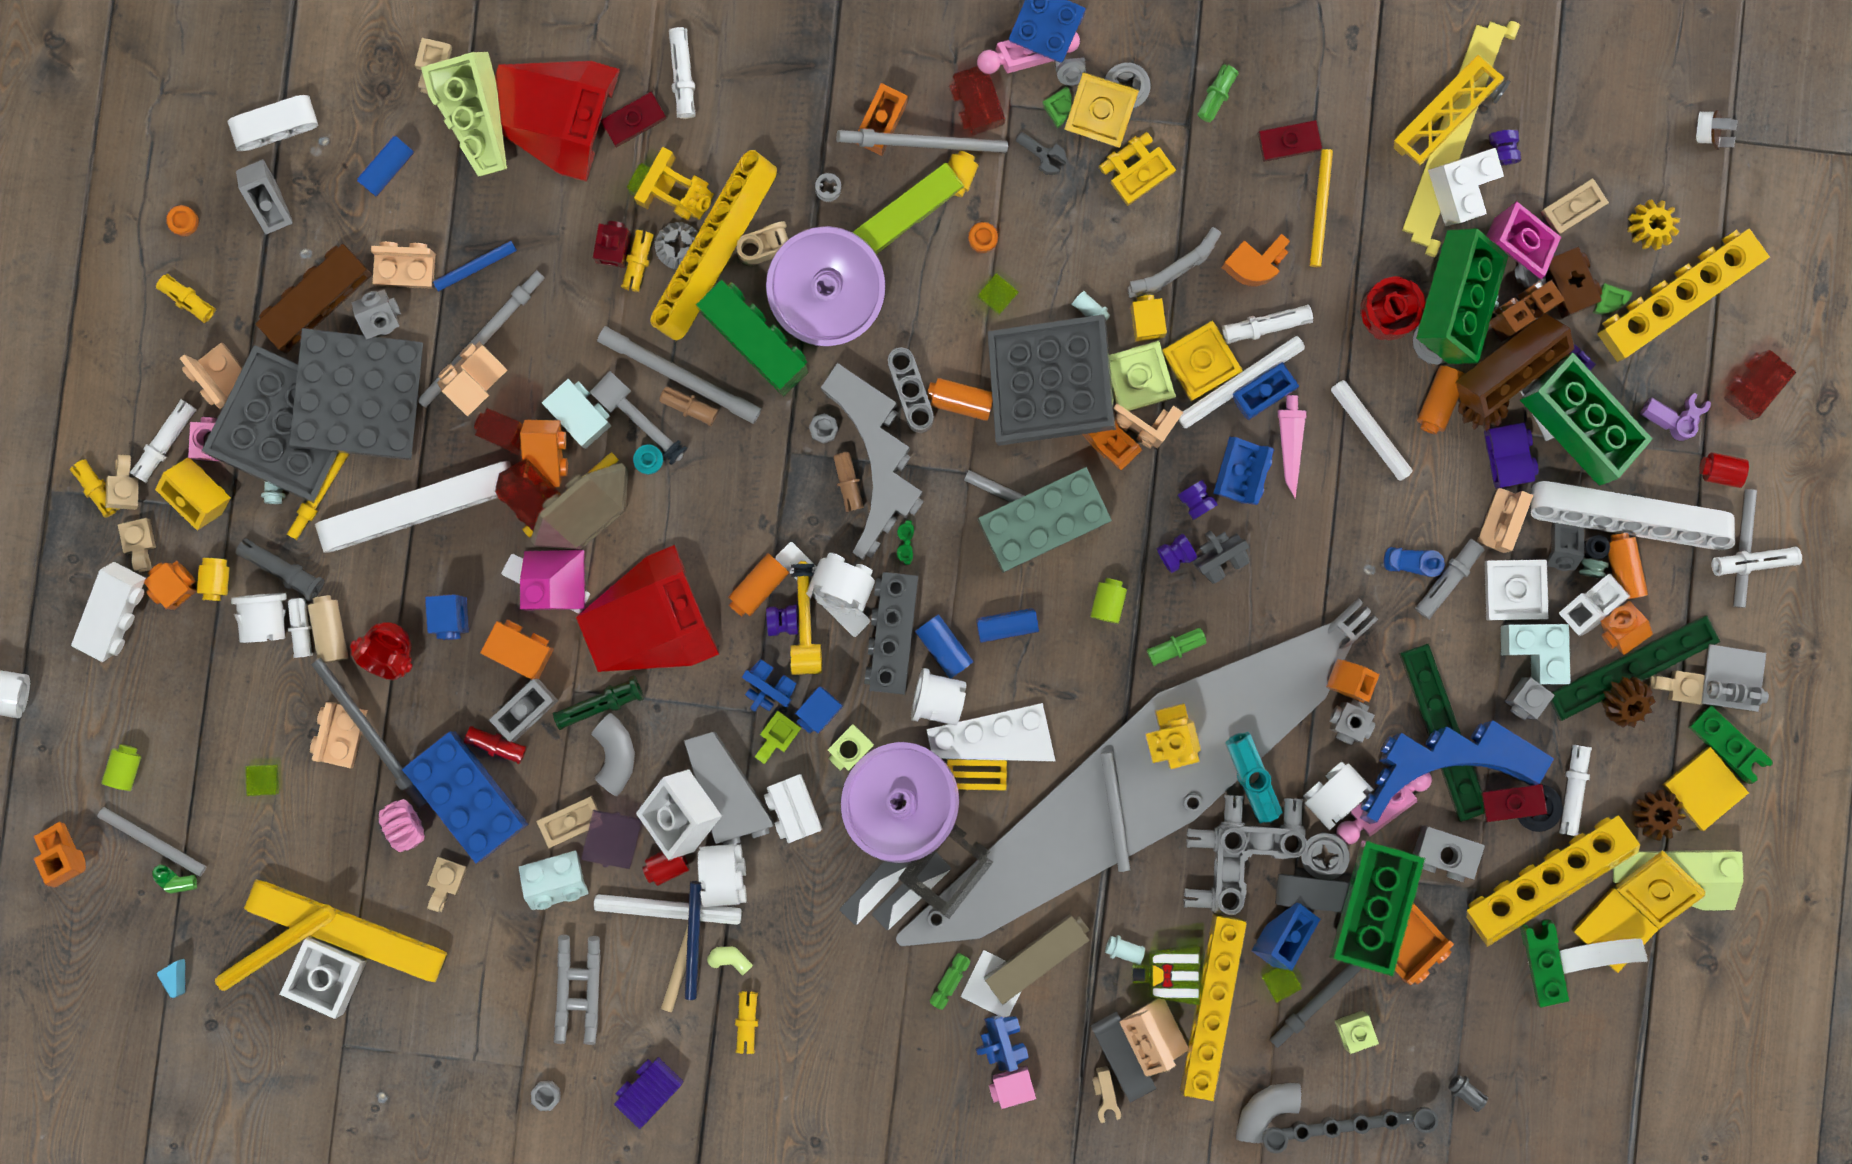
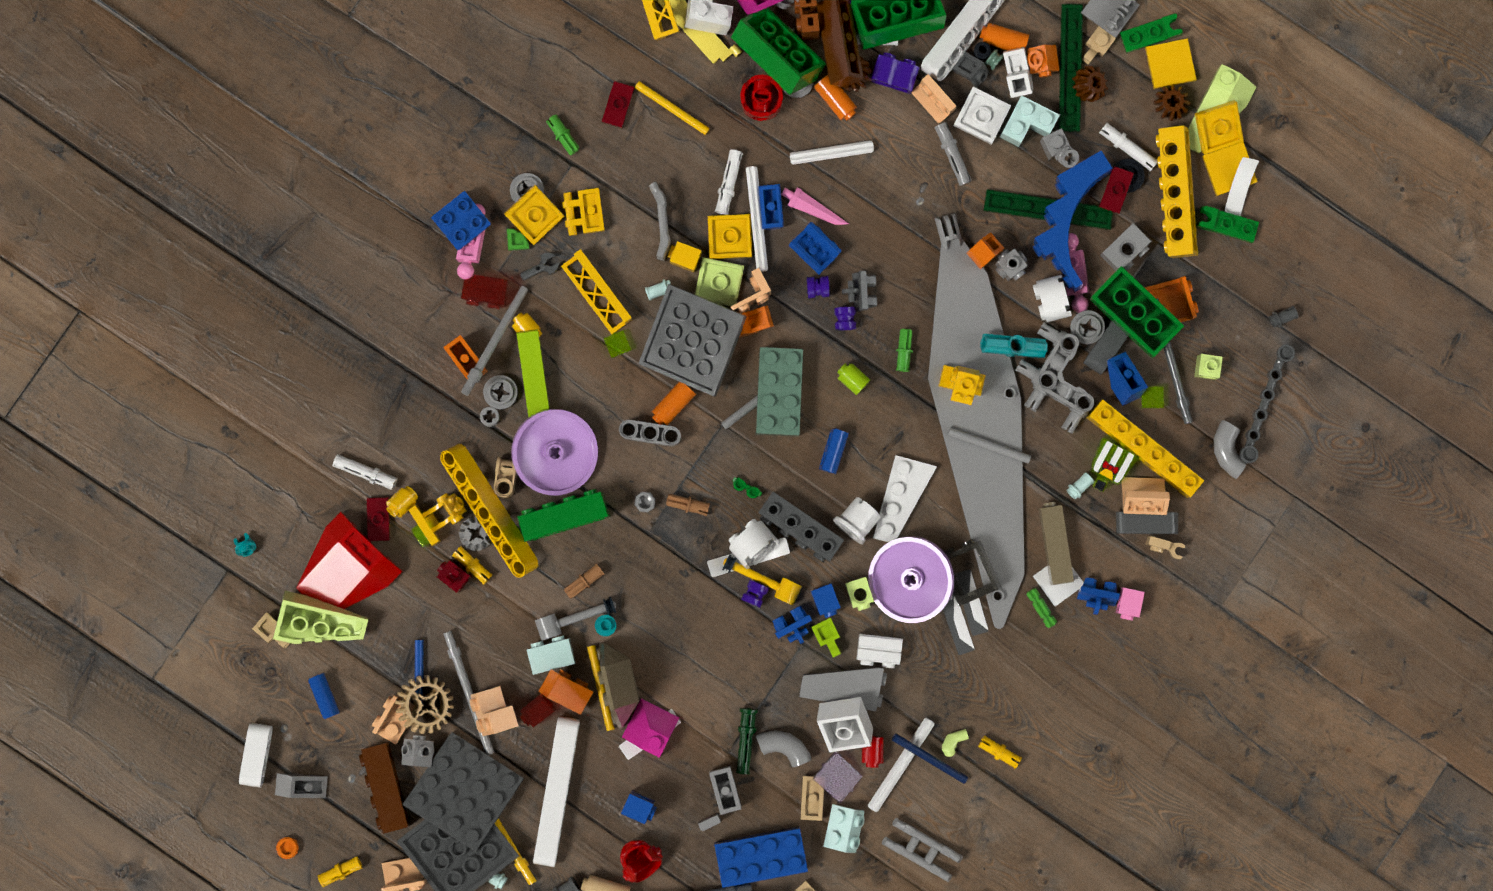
camera: 60 degrees left, 0 degrees up
(424, 287) = (418, 710): none -> tan gear
(475, 712) = (709, 822): none -> light grey tile
(495, 744) = (737, 820): red pin -> none
(517, 650) = (683, 774): orange brick -> none
(524, 491) = (587, 714): clear red brick -> none
(648, 619) = (708, 679): red wedge -> none
(648, 1092) = (1011, 838): dark purple brick -> none
(668, 134) = (401, 501): none -> yellow brick
(676, 977) = (947, 781): tan bar -> none
(721, 875) = (898, 717): white brick -> none
(734, 403) = (598, 551): light grey piece -> none
(757, 585) = (724, 597): orange brick -> none
(872, 172) = (494, 384): none -> light grey gear
(891, 493) = (650, 467): light grey arch -> none
(944, 646) = (826, 498): blue brick -> none
(976, 786) = (927, 505): yellow tile -> none
(983, 237) = (575, 334): orange tile -> none
(1058, 239) = (603, 287): none -> yellow fence
(1070, 70) = (497, 220): light grey plate -> none
(1253, 268) = (688, 172): orange brick -> none
(1415, 561) = (933, 165): blue piece -> none
(1519, 729) = (1072, 161): none -> light grey bush

